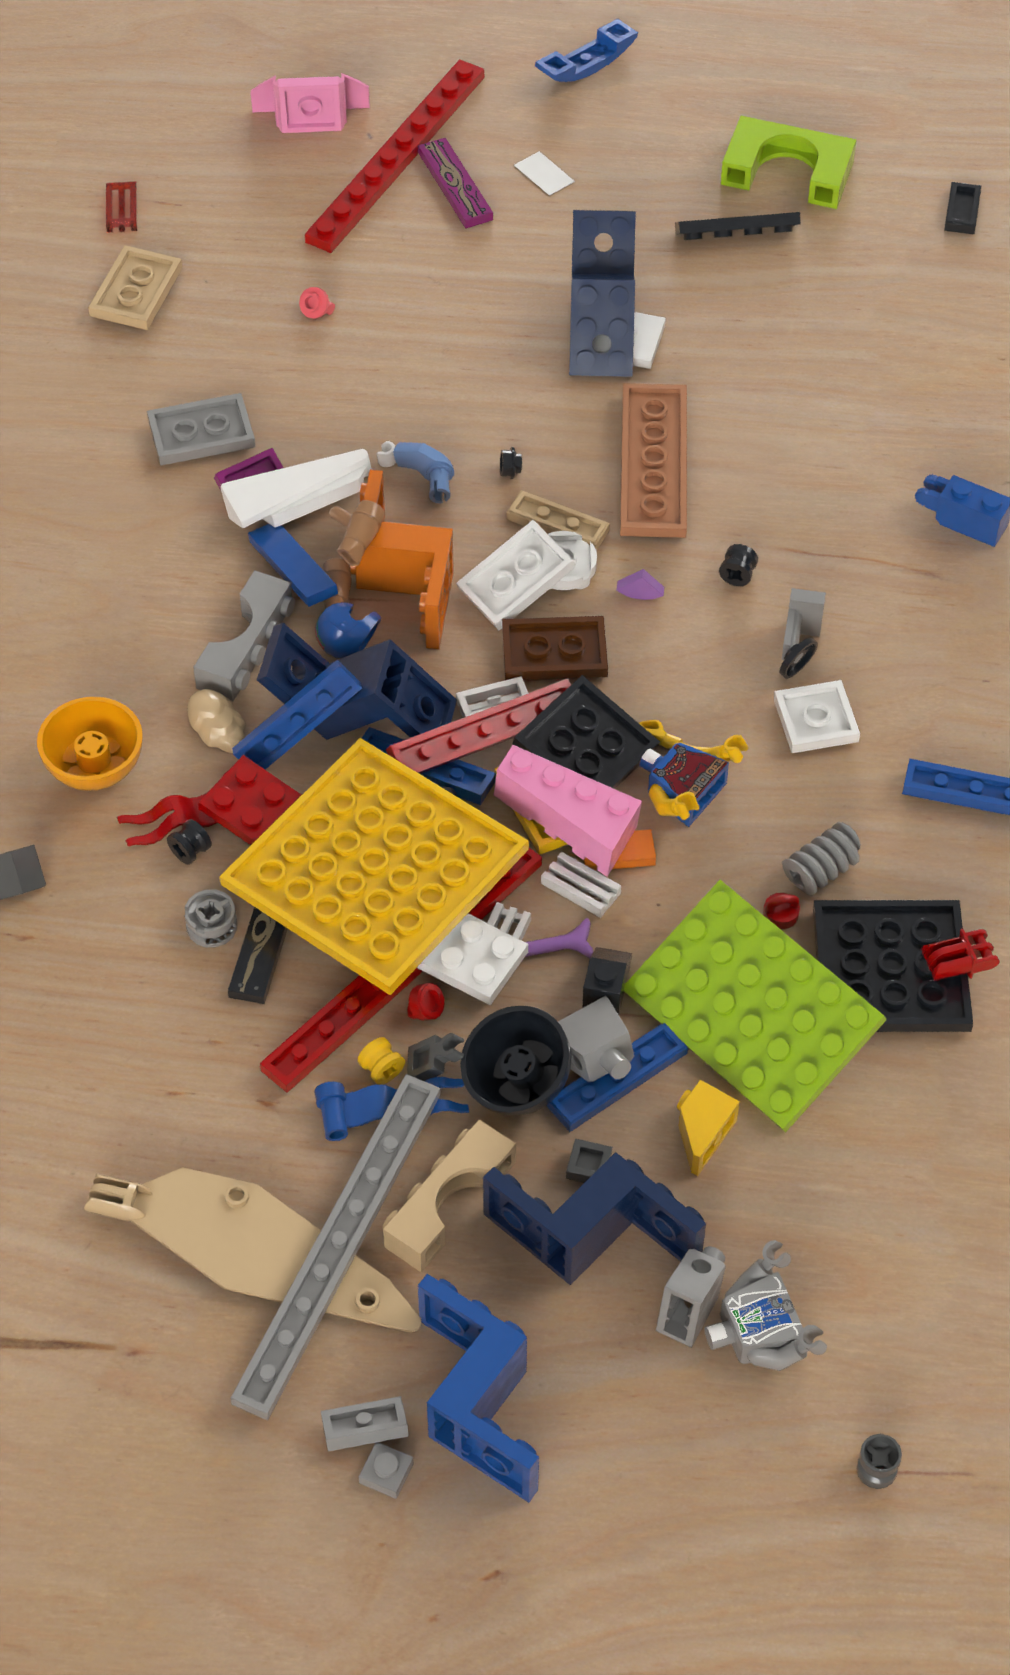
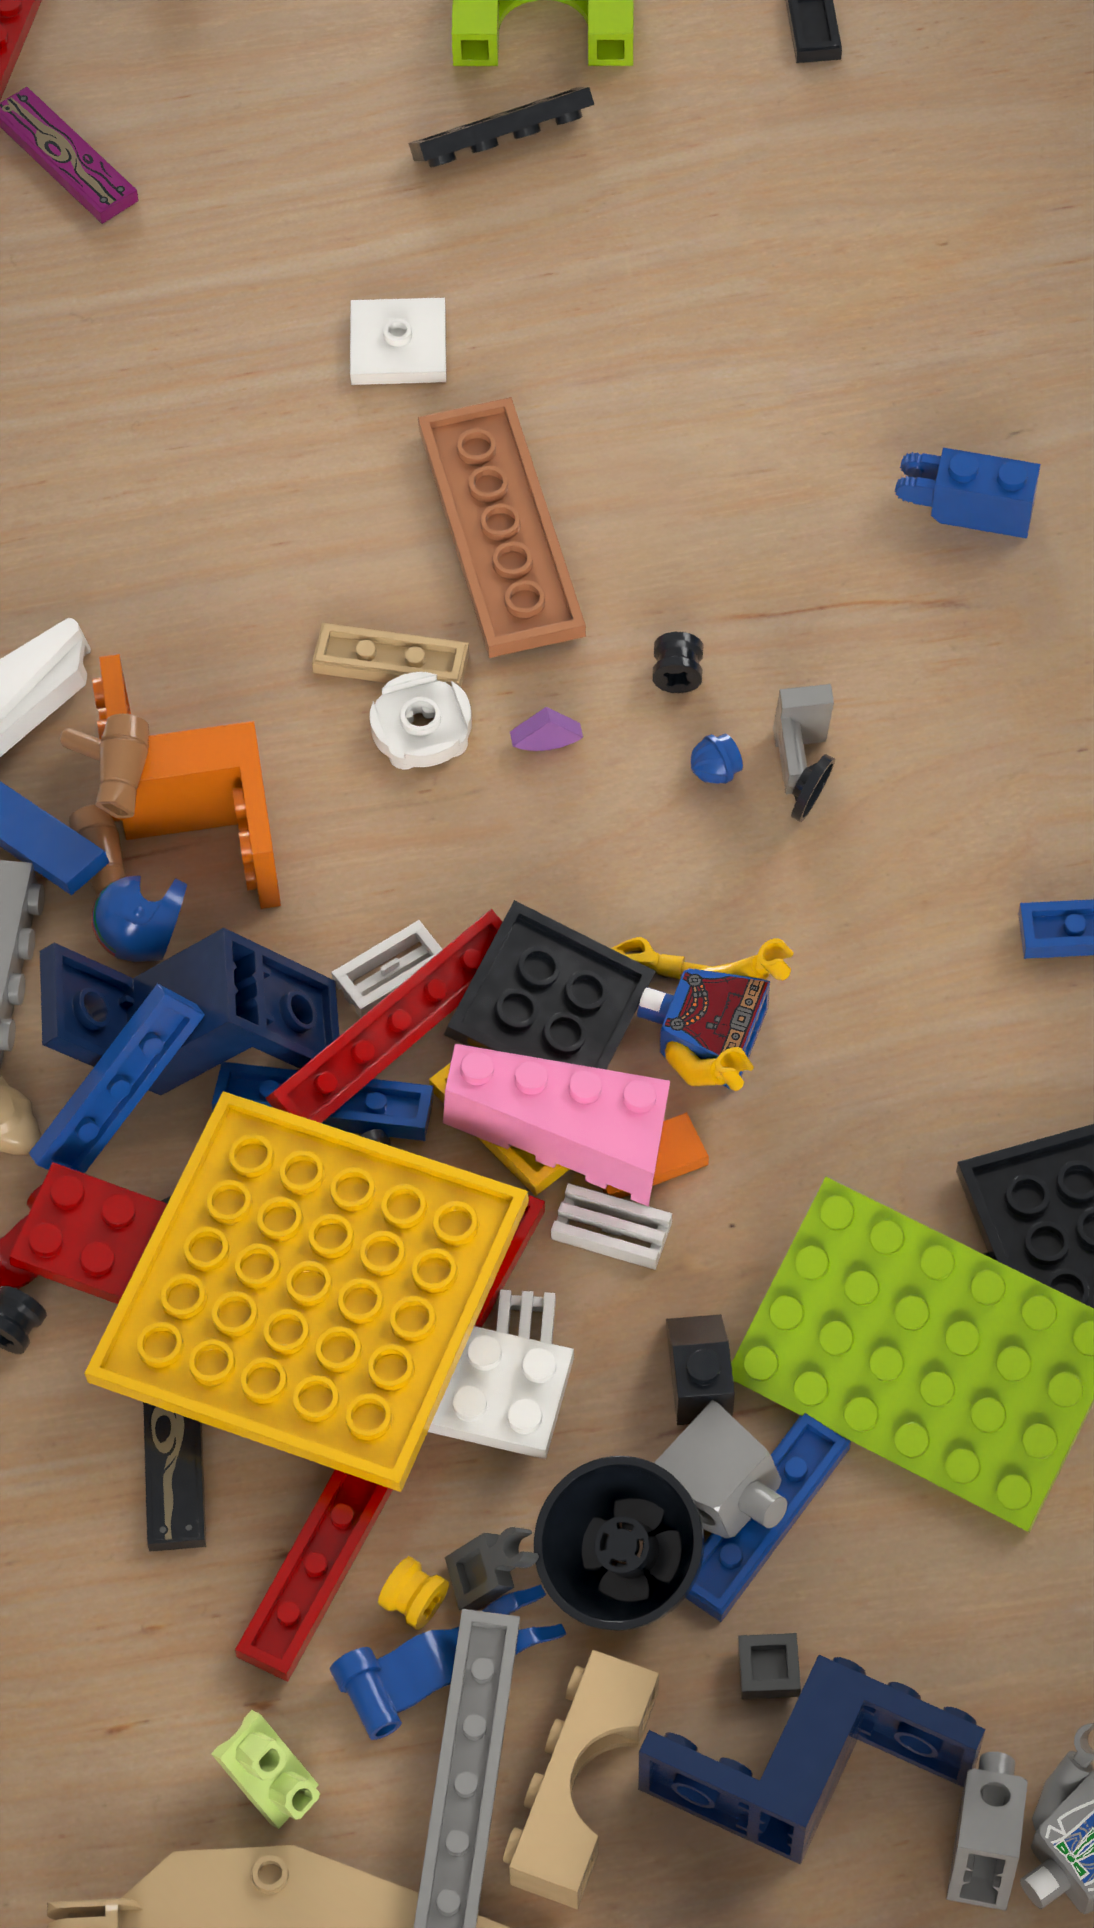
camera: 15 degrees left, 5 degrees up
(220, 917) = (82, 1432): light grey wheel -> none
(254, 1135) = (267, 1771): none -> yellowish green hips
(423, 458) = (165, 611): medium blue arm -> none
(425, 1002) = (447, 1480): red tile -> none
(510, 463) = (292, 583): black plate -> none
(516, 574) = (361, 762): white plate -> none
(544, 173) = (190, 108): white sticker -> none
(554, 647) = (453, 862): reddish brown plate -> none
(573, 940) = (631, 1318): medium lavender piece -> none
(602, 293) = (347, 285): dark blue bracket -> none
(705, 1122) = (913, 1555): yellow slope -> none
(743, 628) = (716, 759): none -> blue plate
(782, 909) = (913, 1187): red tile -> none
(816, 716) = (865, 871): white plate -> none
(823, 858) = (950, 1093): light grey piece -> none

